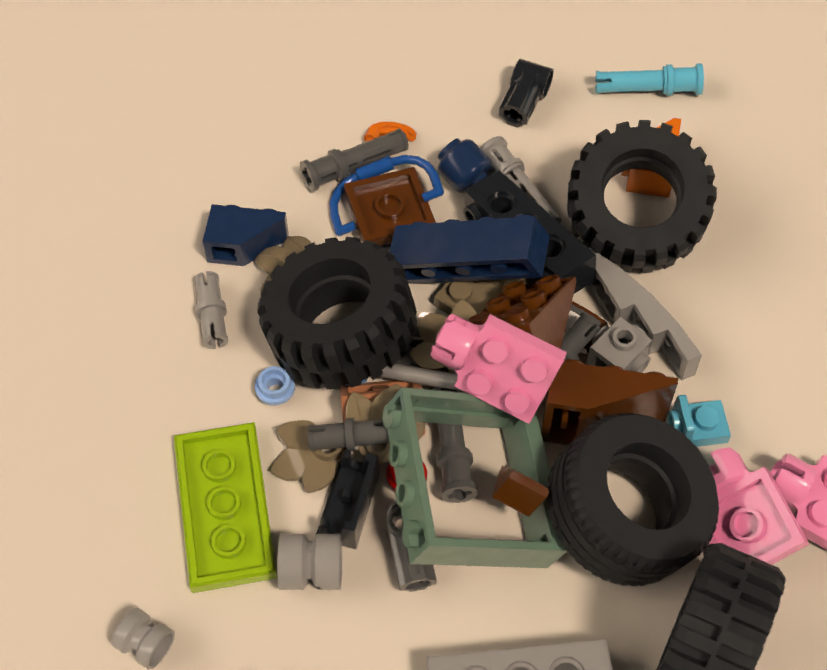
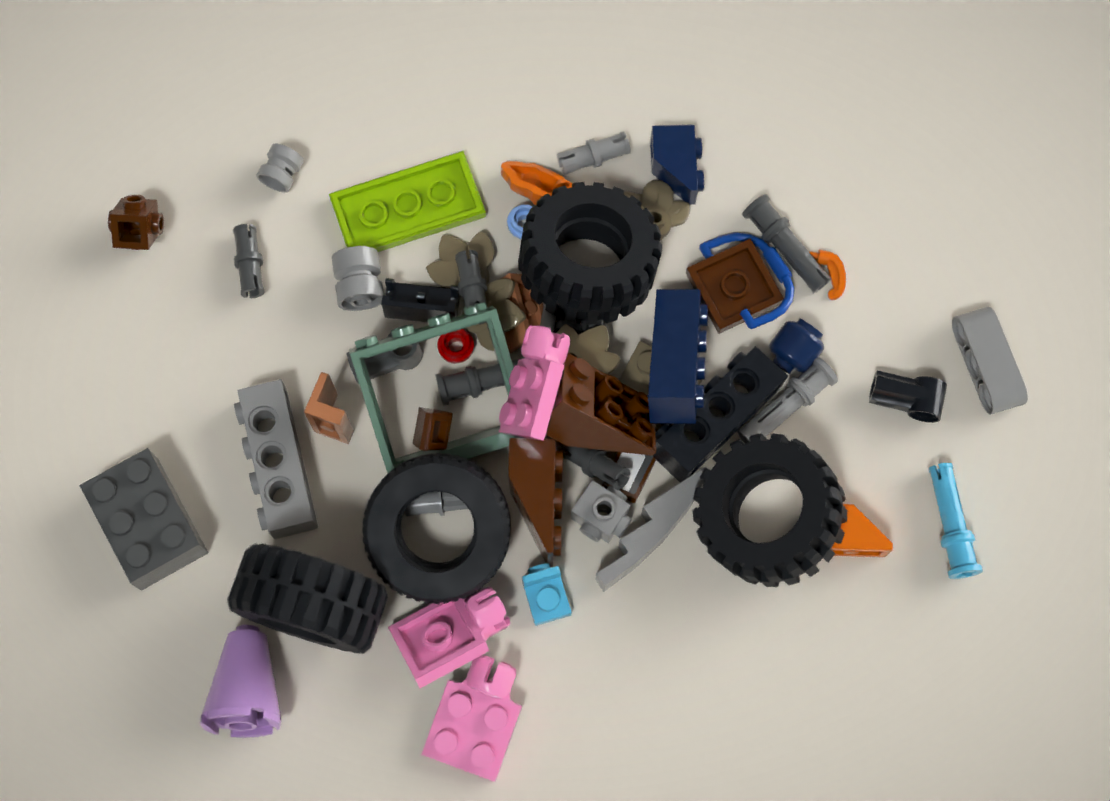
camera: 80 degrees right, 15 degrees up
(235, 364) = (531, 179): none -> orange arm
(474, 615) = (323, 416): none -> nougat panel
(500, 28) = (989, 360): none -> light grey beam

